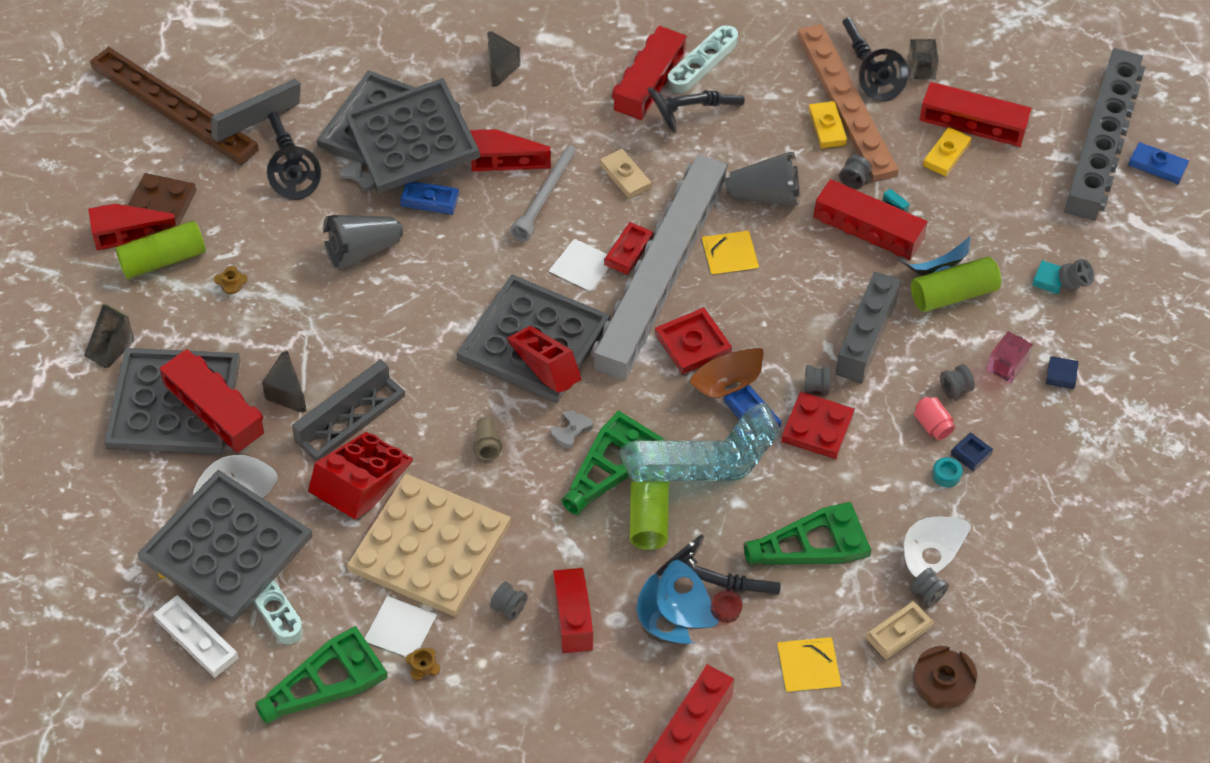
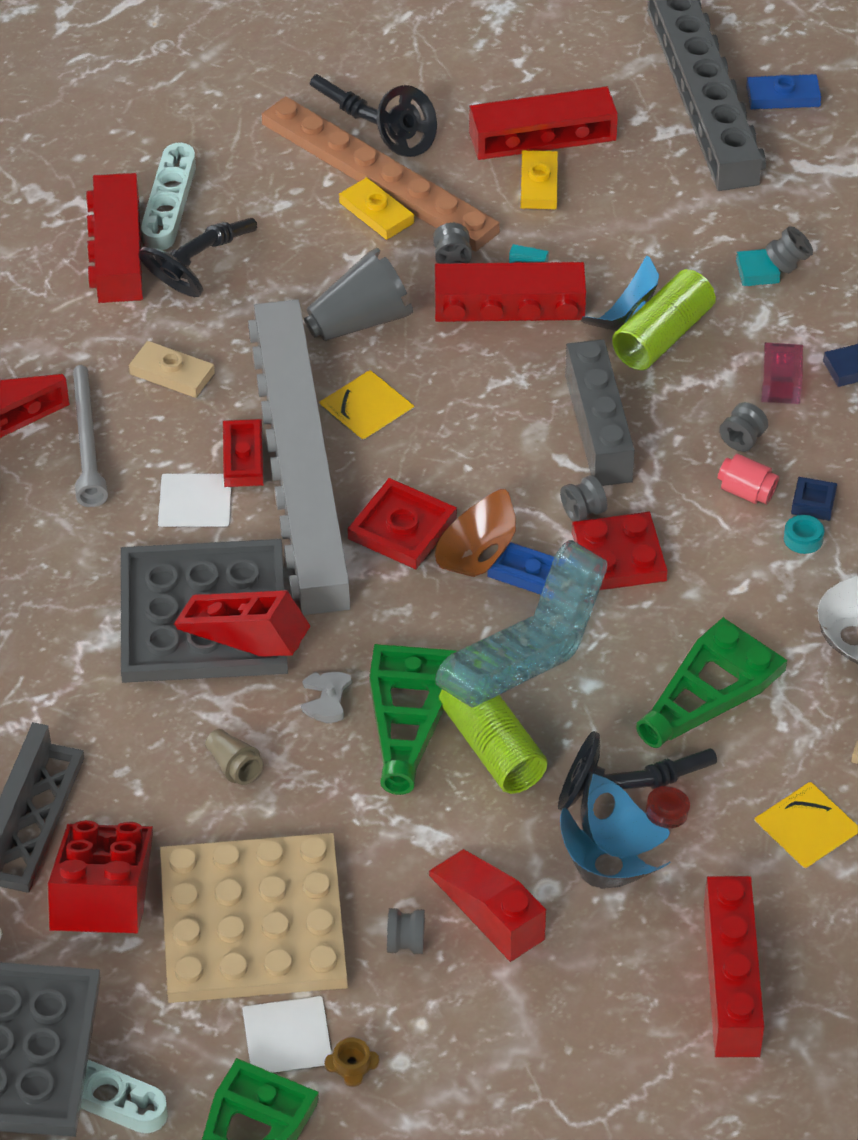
camera: 30 degrees left, 5 degrees down
(922, 59) = (439, 83): clear smoke brick -> none

